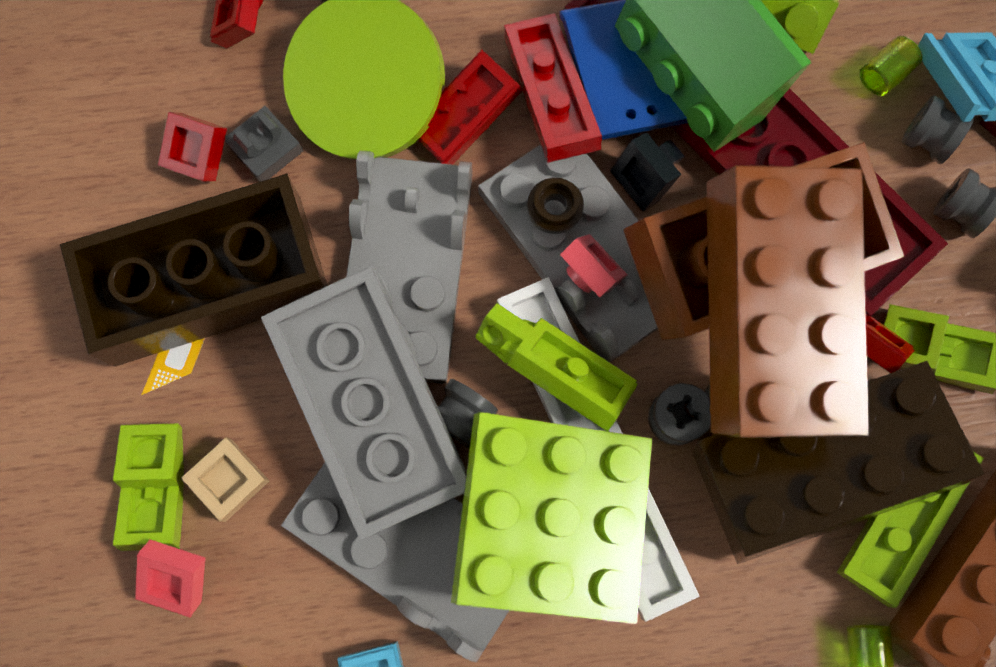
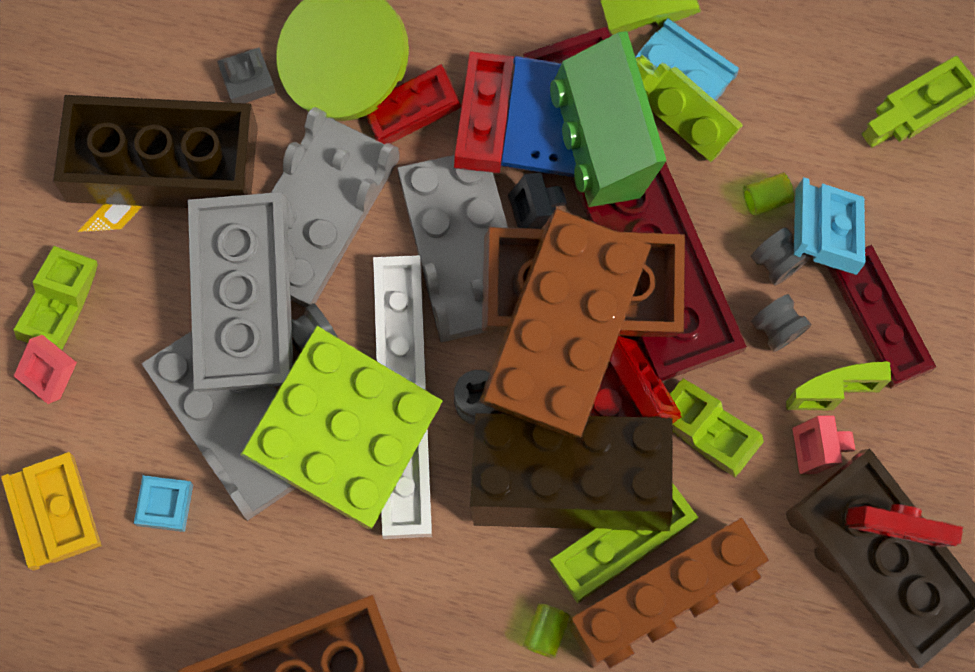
camera: 20 degrees right, 5 degrees down
(192, 146) = (191, 58): red plate -> none
(225, 479) = (114, 314): tan plate -> none
(558, 190) = (446, 190): dark brown plate -> none
(558, 365) = (395, 320): lime hinge -> none
(592, 266) = (454, 257): coral plate -> none

